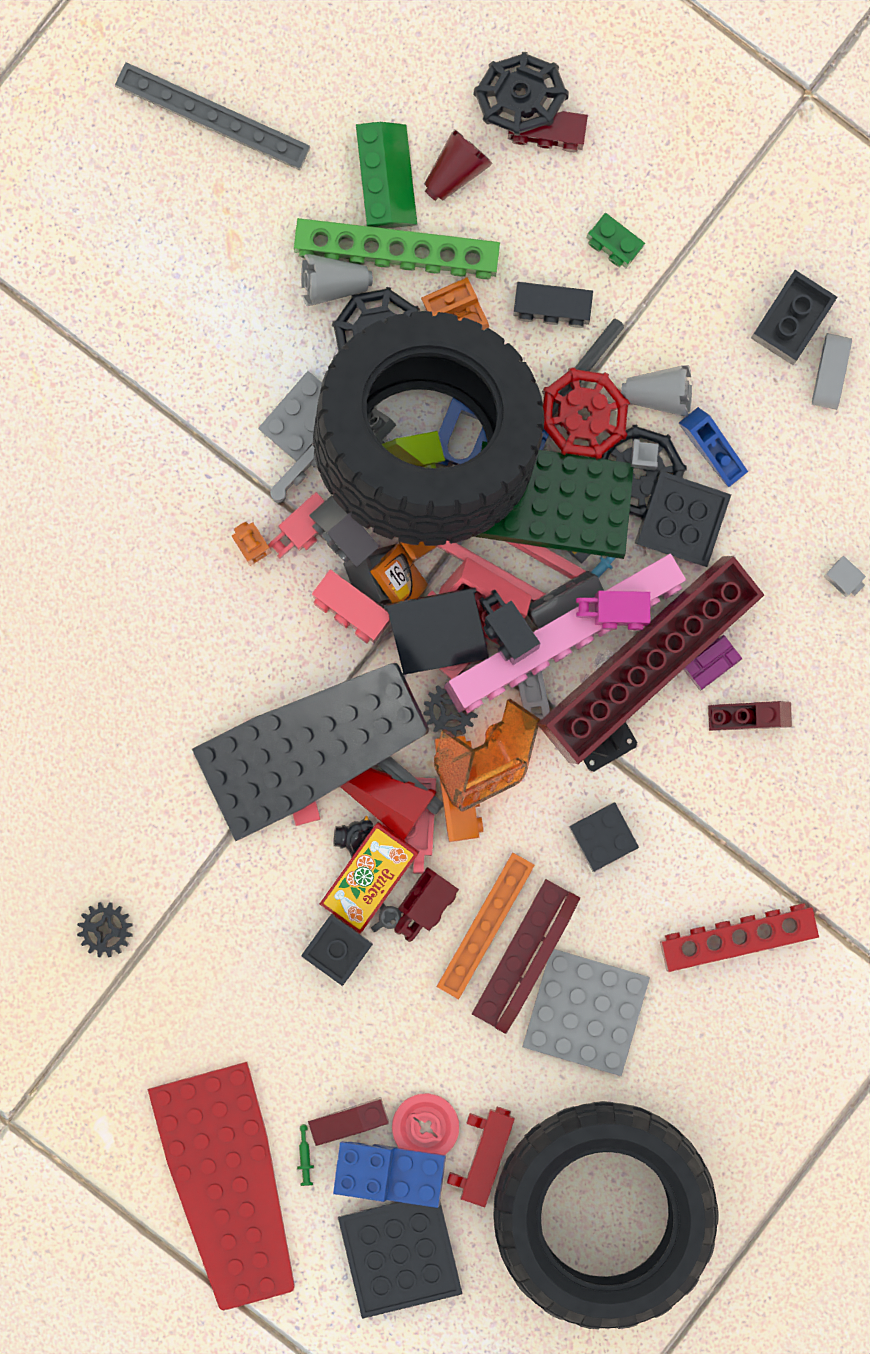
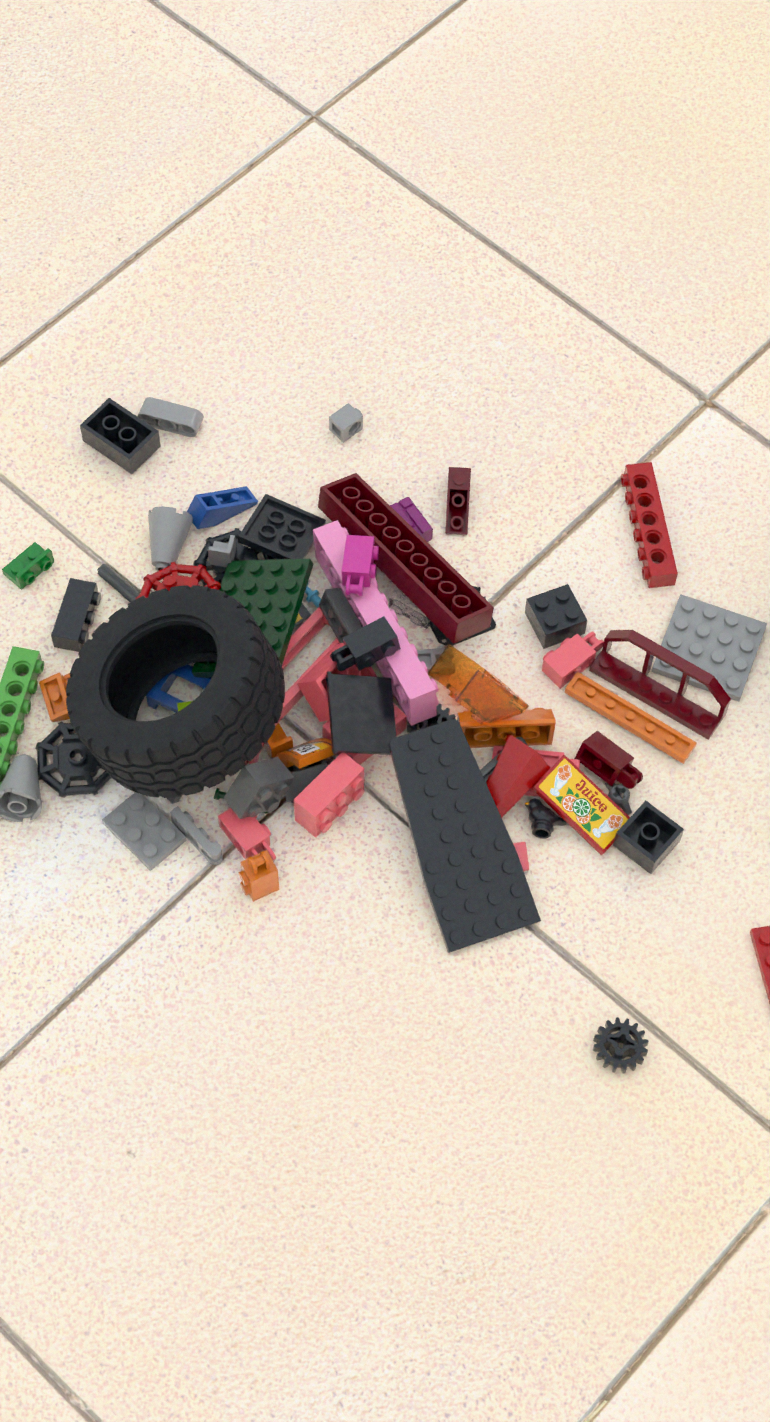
camera: 80 degrees left, 25 degrees down
(553, 857) = (571, 657): none -> coral brick

